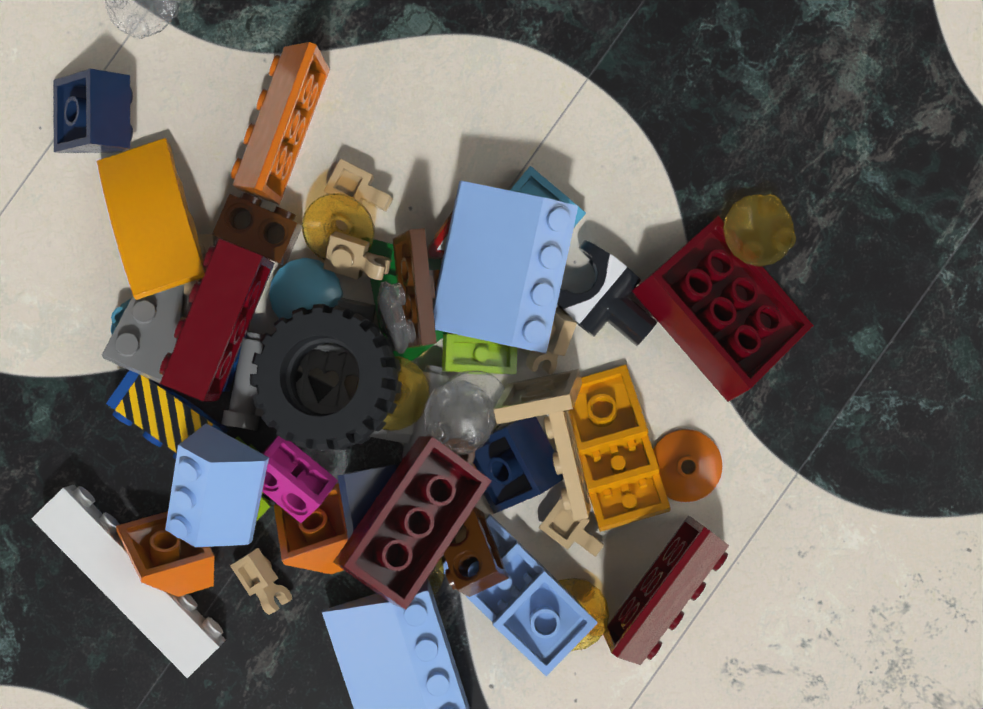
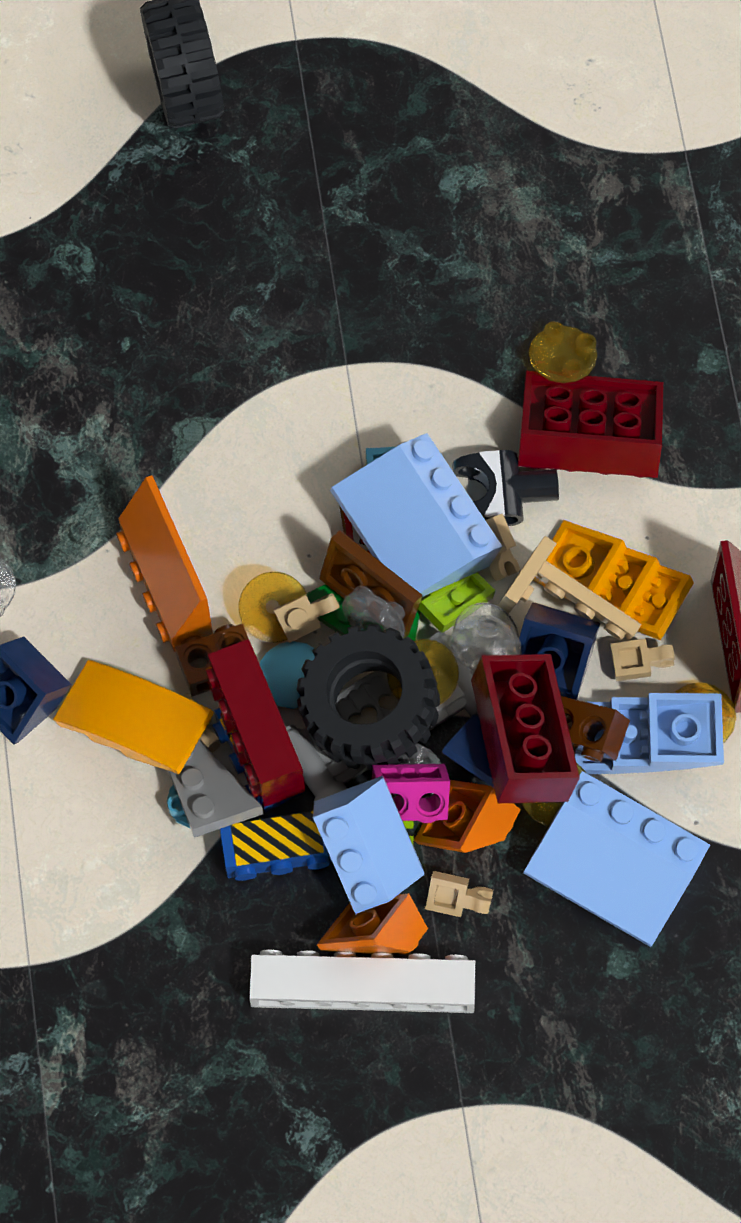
camera: 45 degrees left, 20 degrees down
(356, 183) = (254, 564): tan plate -> none
(692, 446) = (689, 558): orange dish -> none

